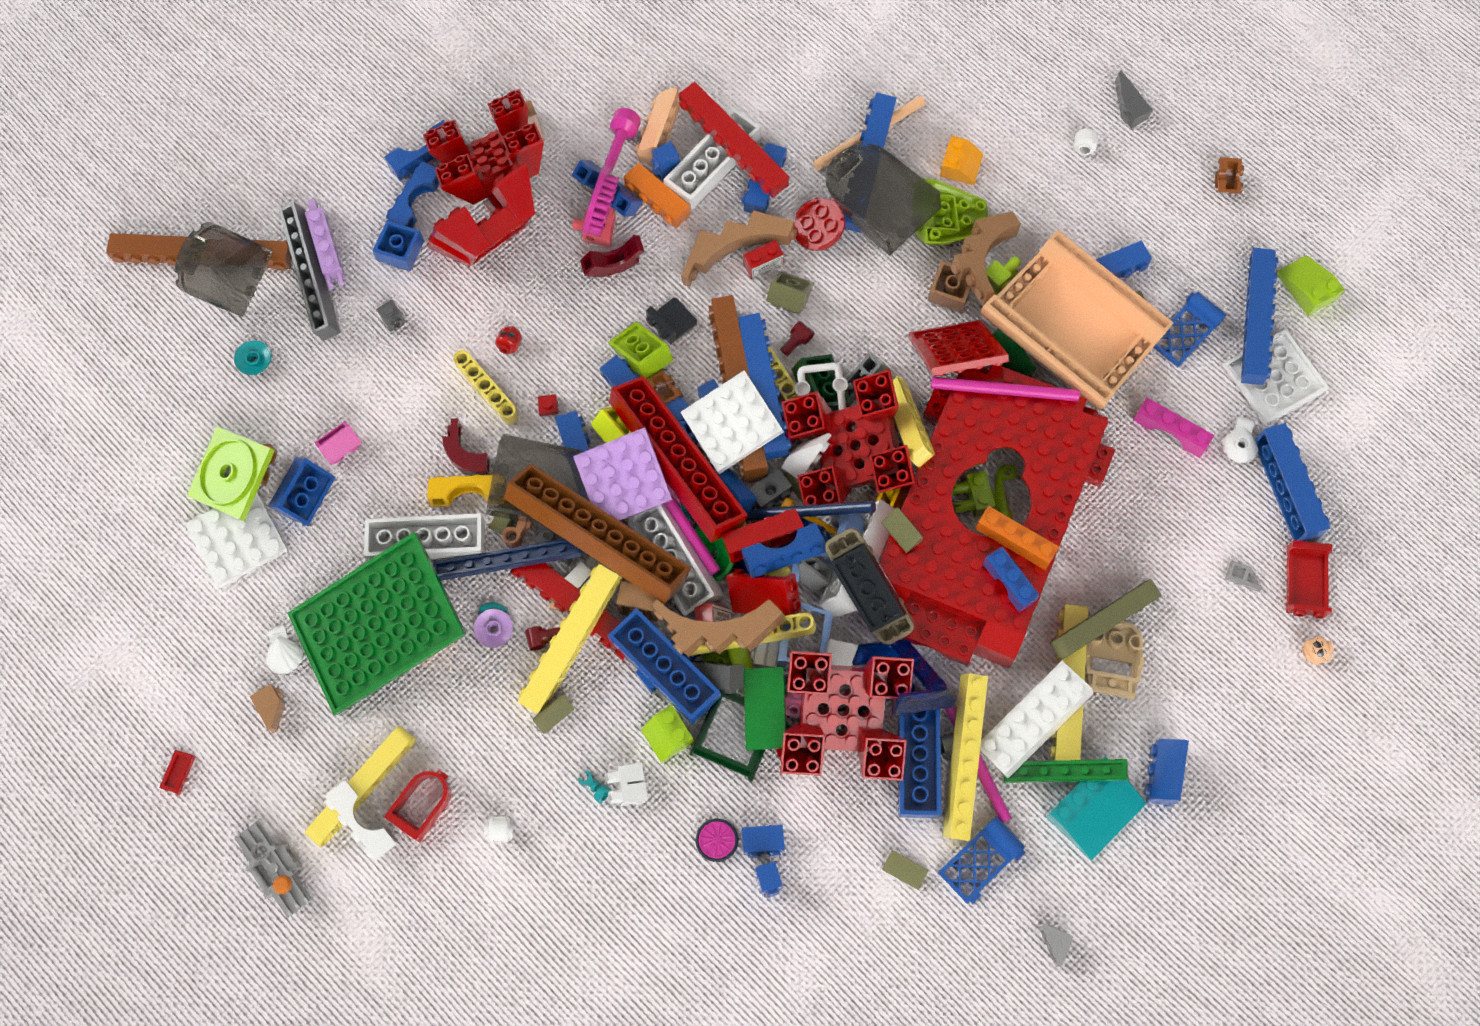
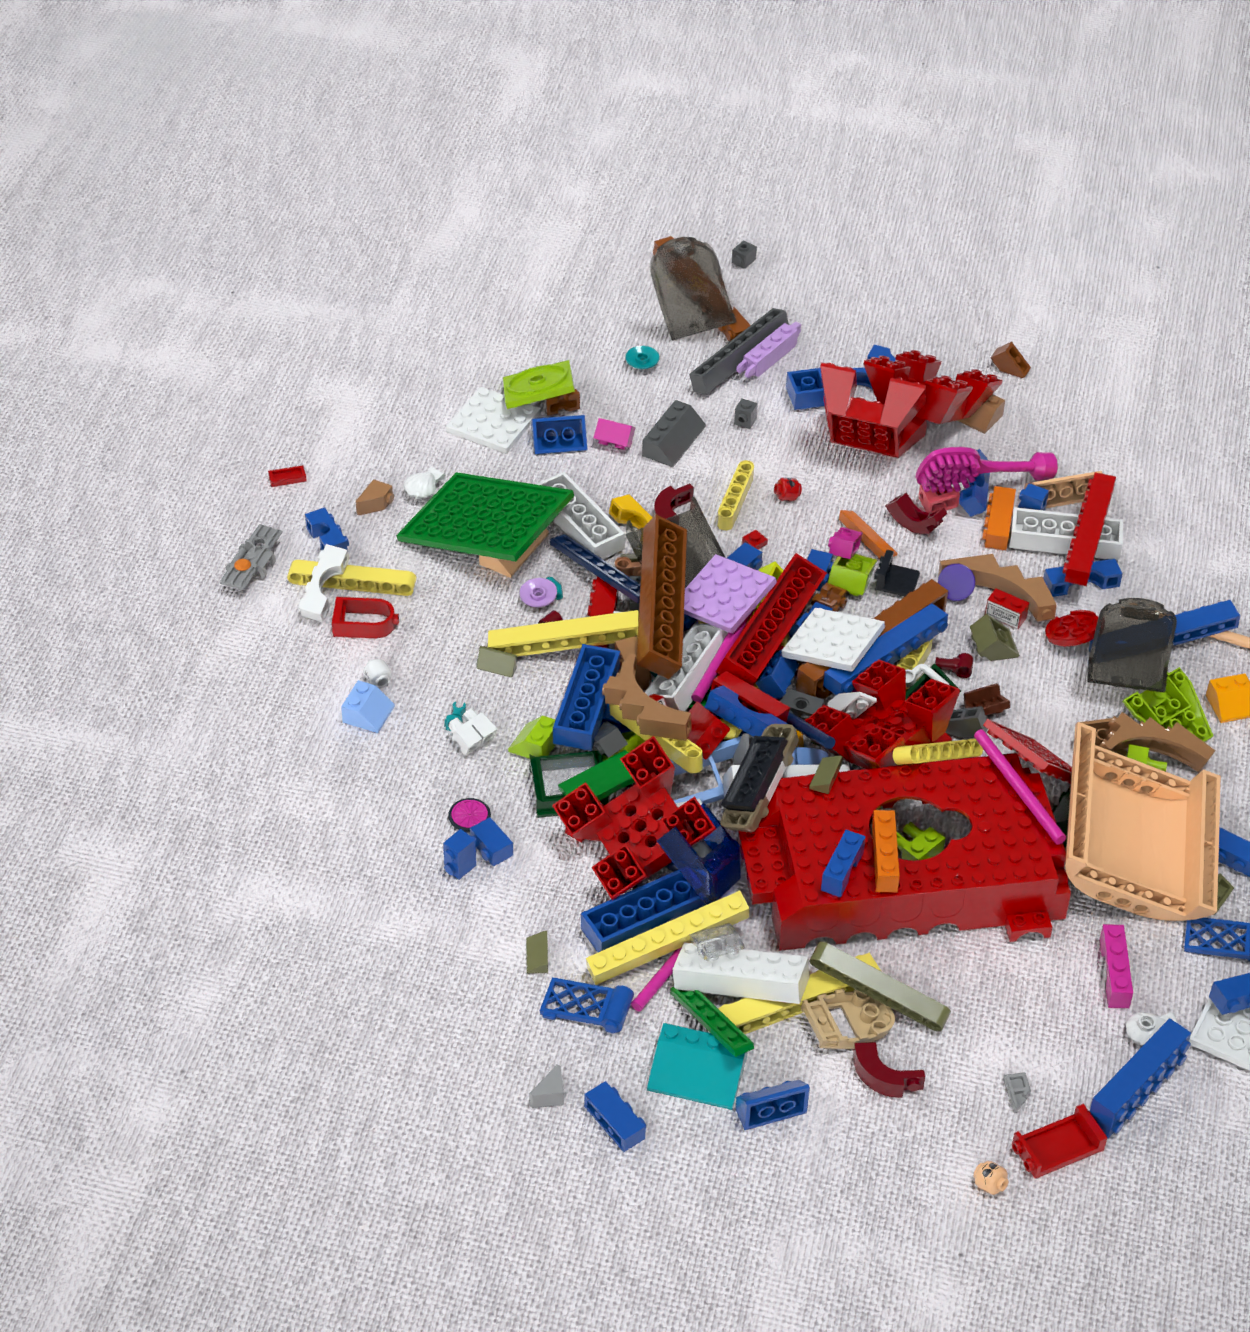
camera: 55 degrees right, 25 degrees down
(179, 186) = (744, 254): none -> dark grey brick
(269, 775) = (322, 525): none -> blue arch
(373, 392) = (672, 434): none -> dark grey slope
(478, 62) = (1010, 360): none -> dark orange slope
(537, 862) = (366, 707): none -> light blue slope
(603, 310) = (869, 536): none -> orange slope
(609, 336) = (845, 542): none -> dark pink brick
(711, 278) = (958, 581): none -> dark purple tile
(853, 343) = (987, 697): none -> copper bracket
(1006, 723) = (717, 942): none -> clear slope
(1111, 904) = (615, 1116): none -> blue brick
(1172, 674) = (882, 1078): none -> dark red arch

